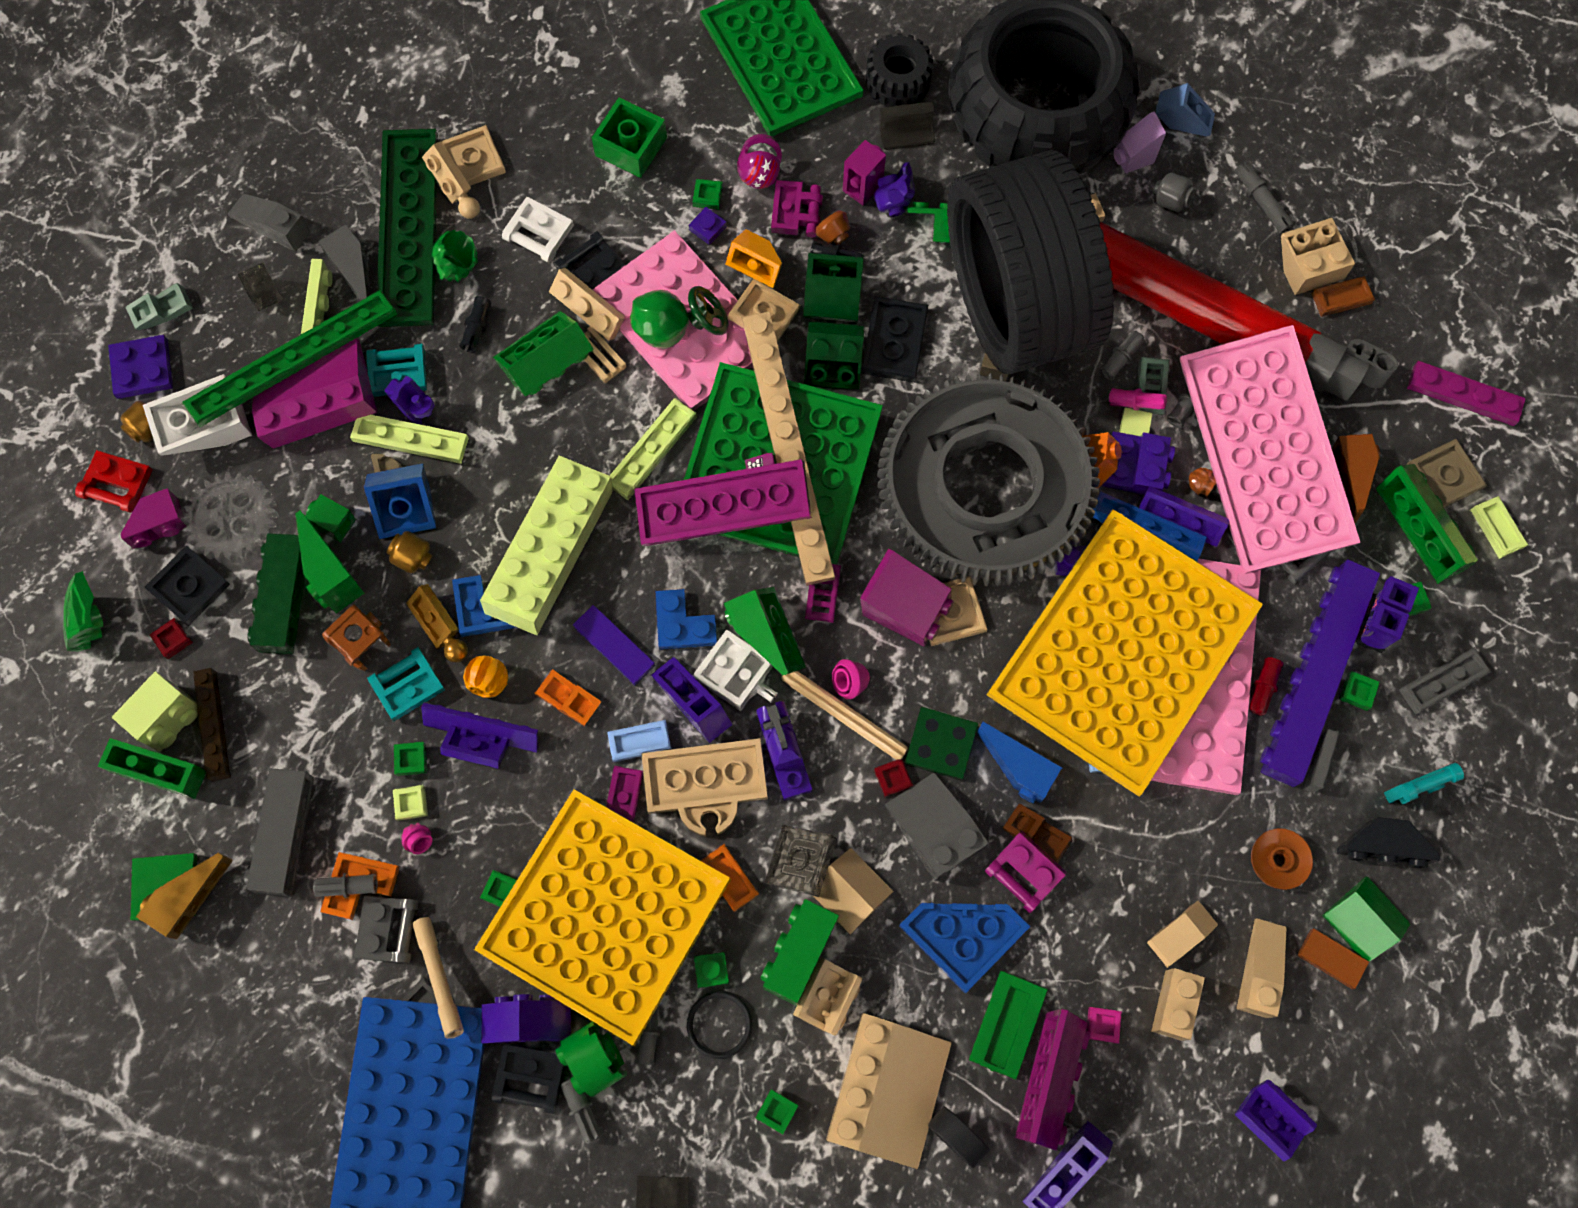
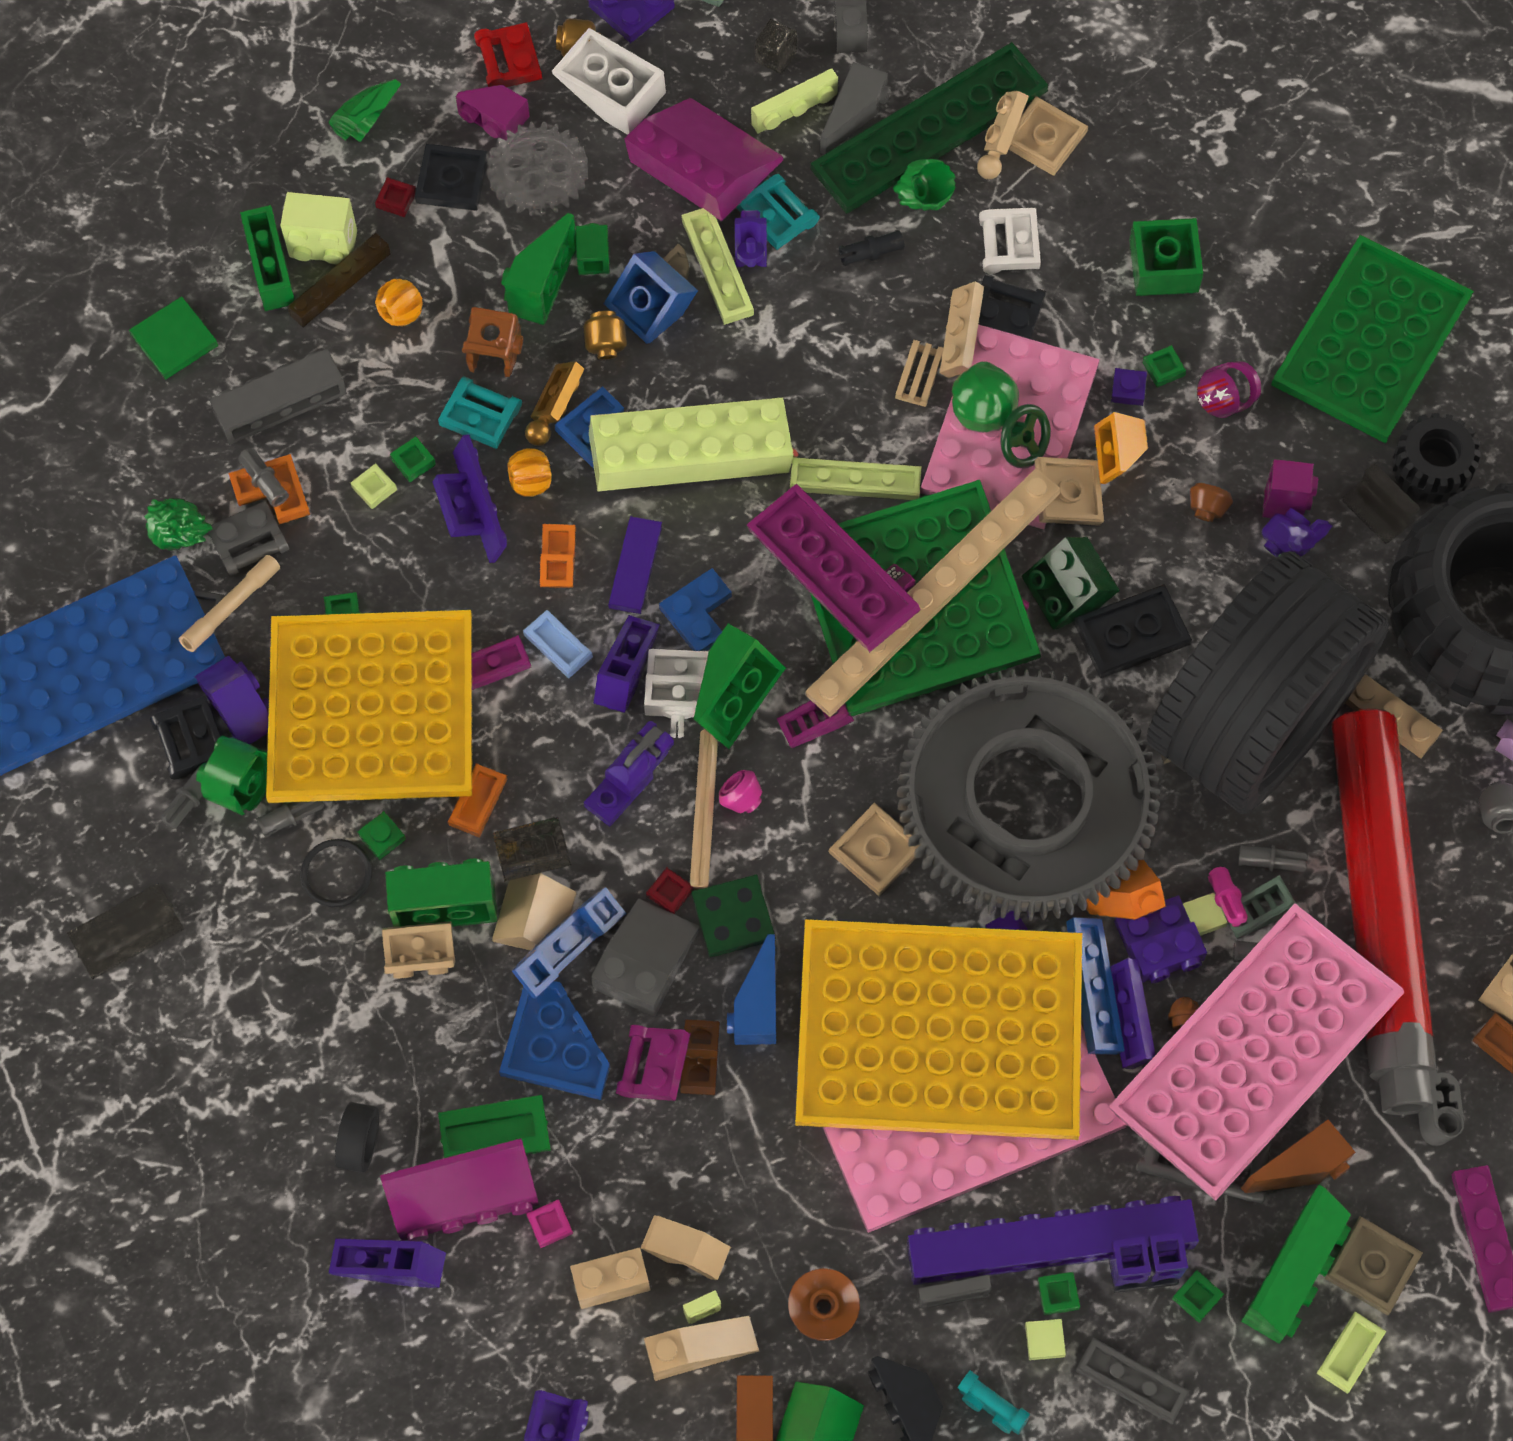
camera: 60 degrees right, 5 degrees down
(177, 901) = (168, 354): pearl gold slope -> none
(268, 689) = (399, 302): none -> light orange piece
(278, 596) = (485, 257): dark green brick -> none
(289, 358) = (719, 115): green tile -> none
(335, 981) = (175, 524): none -> green hair
(416, 838) = (343, 510): dark pink plate -> none
(544, 353) = (882, 324): green slope -> none
(705, 781) = (555, 723): tan plate -> none
(776, 1111) = (286, 967): green plate -> none
(787, 205) = (1203, 445): magenta plate -> none
(820, 247) = (1184, 521): black axle -> none
(833, 287) = (1140, 538): dark green slope -> none
(889, 1091) = (364, 1053): tan slope -> none
(890, 879) = (567, 941): none -> slope
(906, 599) = (852, 791): magenta slope -> none
(1236, 948) = (702, 1307): none -> yellowish green tile
(1266, 686) = (1000, 1196): dark red axle -> none
(1385, 720) = (1045, 1339): none -> yellowish green tile

